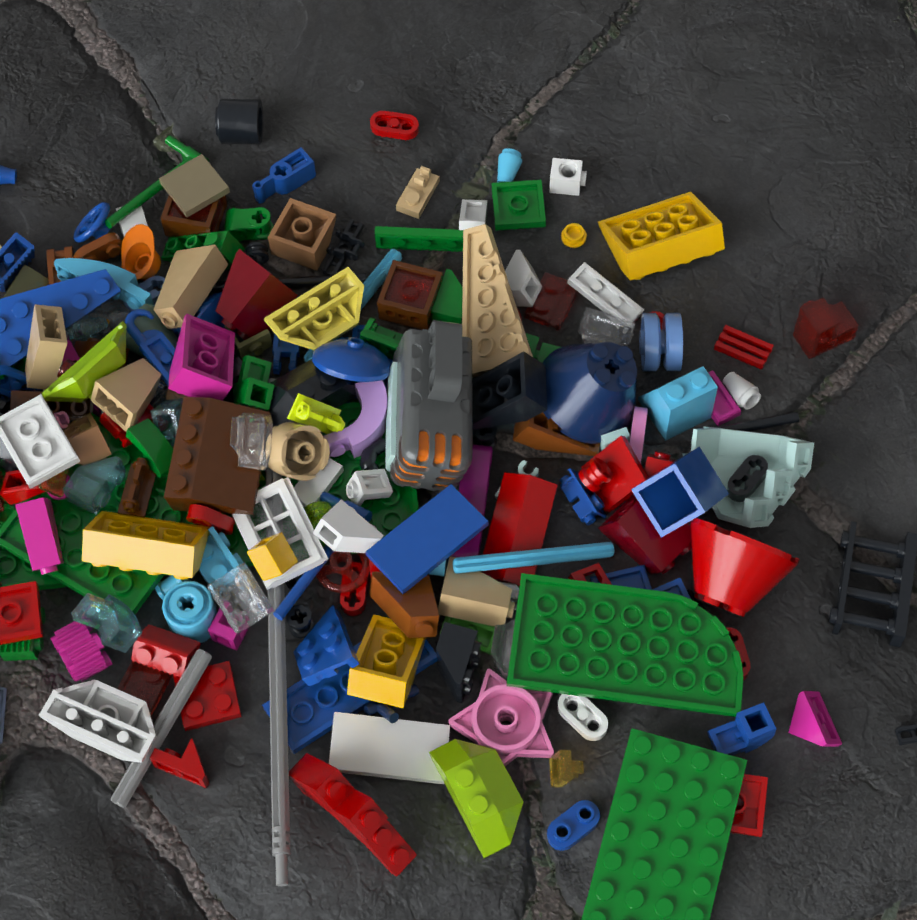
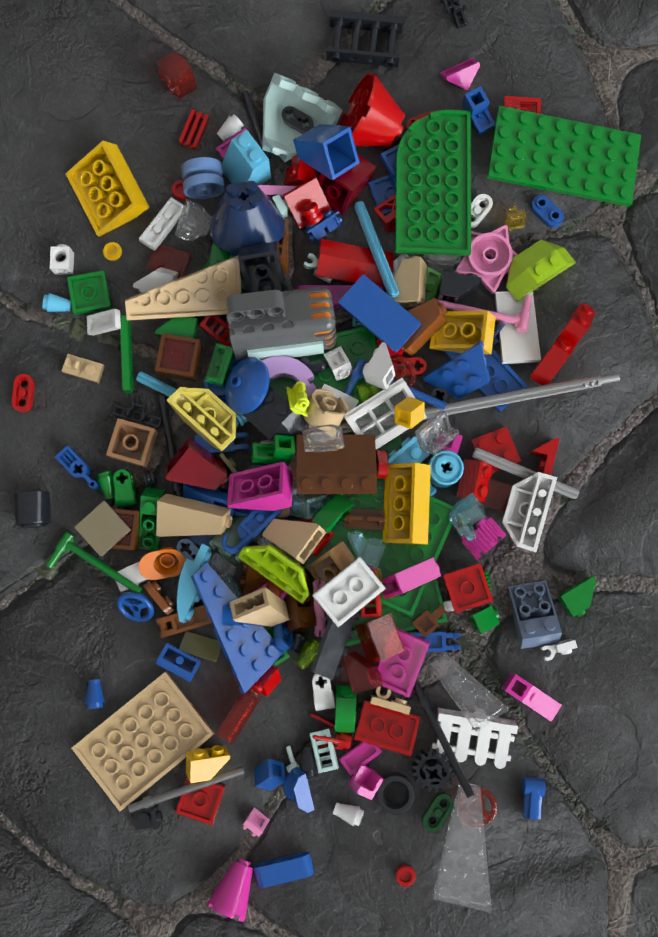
camera: 100 degrees left, 20 degrees up
(262, 200) = (106, 484): none -> green cone
(393, 747) = (520, 320): none -> bright pink bar

